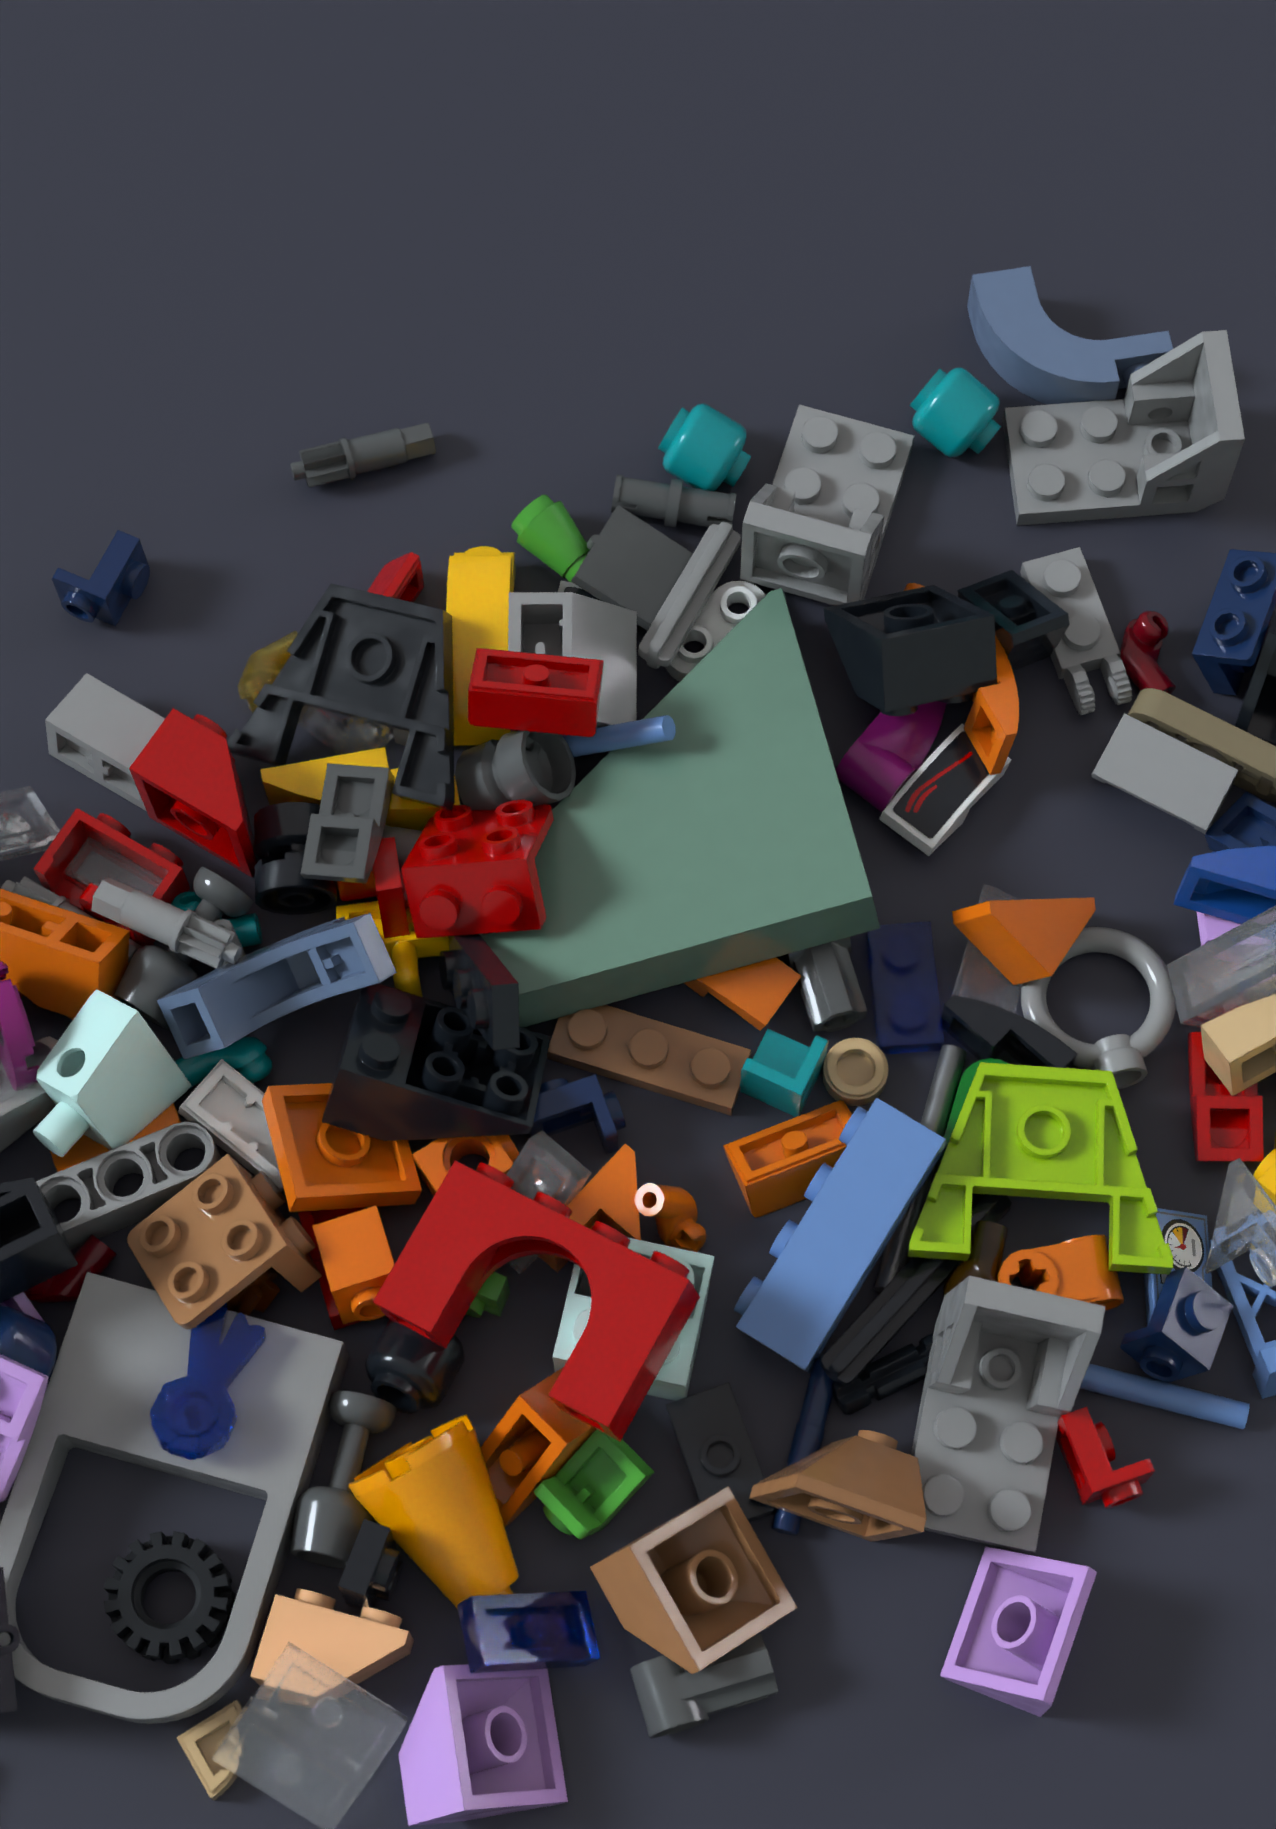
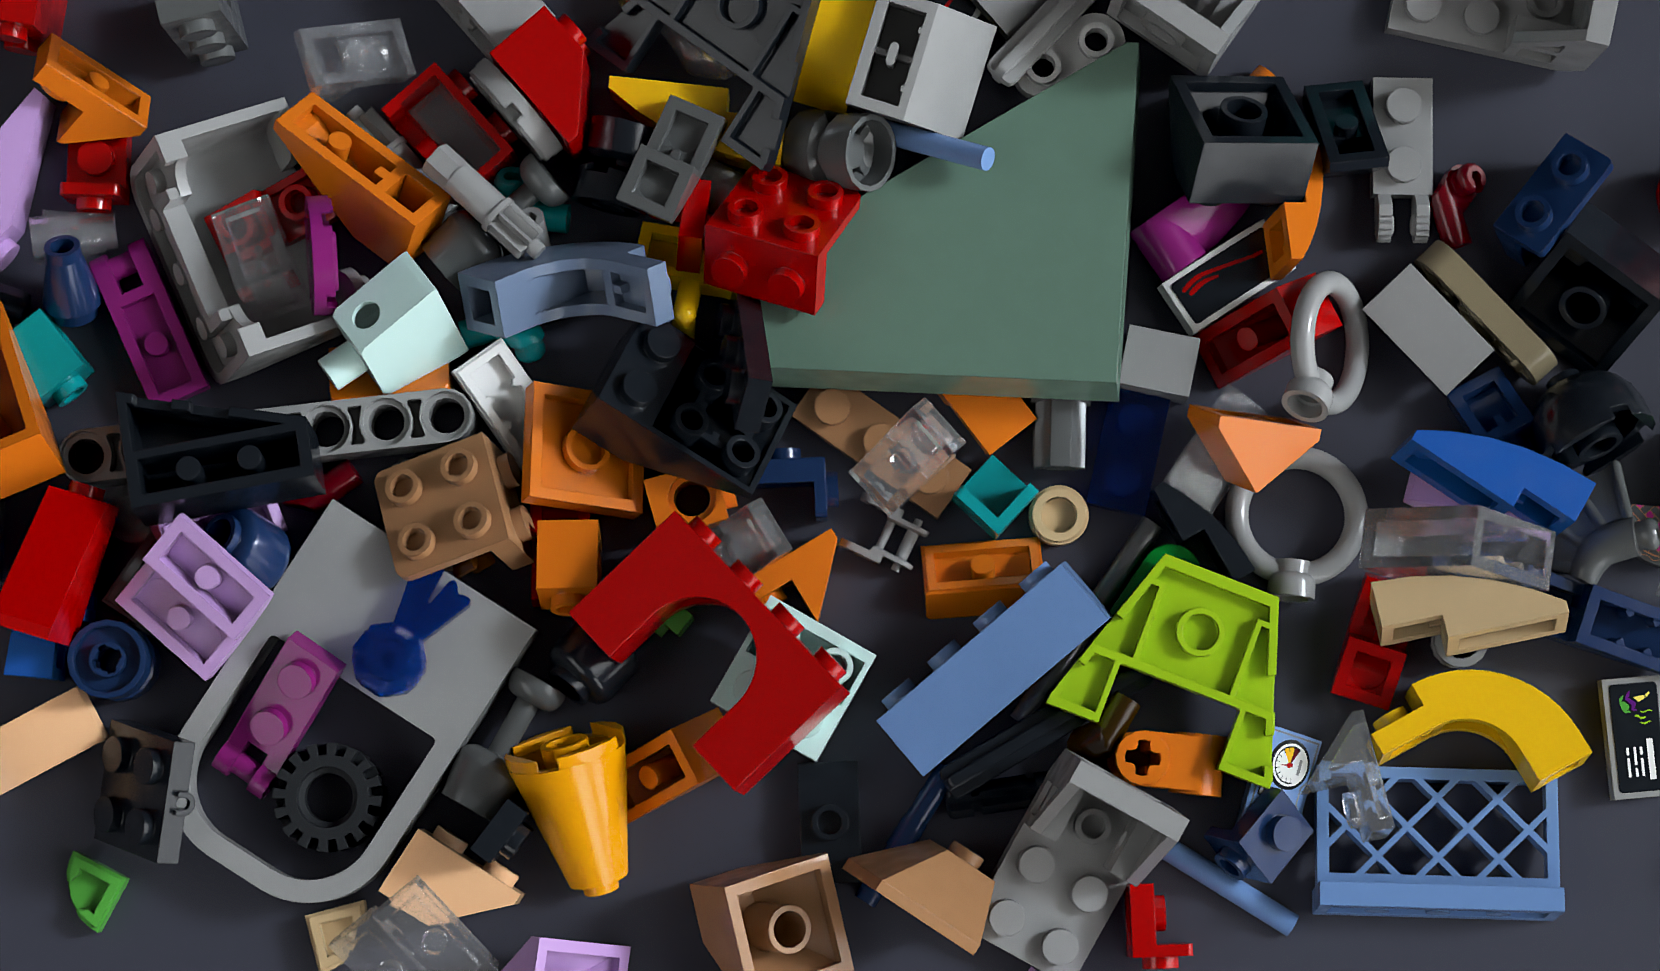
camera: 15 degrees right, 15 degrees up
(89, 1519) = (280, 713): none -> magenta plate
(172, 825) = (515, 110): none -> light grey tile
(528, 1631) = (621, 923): clear blue plate -> none
(535, 692) = (876, 90): red slope -> none
(592, 1485) = (711, 817): bright green bracket -> none
(674, 1215) = (856, 600): orange arm -> none
(680, 1164) = (877, 553): none -> light grey piece
(682, 1044) = (907, 457): none -> clear slope
(908, 885) = (1158, 363): none -> light grey brick
(1003, 824) = (1258, 333): none -> red slope
(1071, 858) = (1310, 392): none -> light grey piece

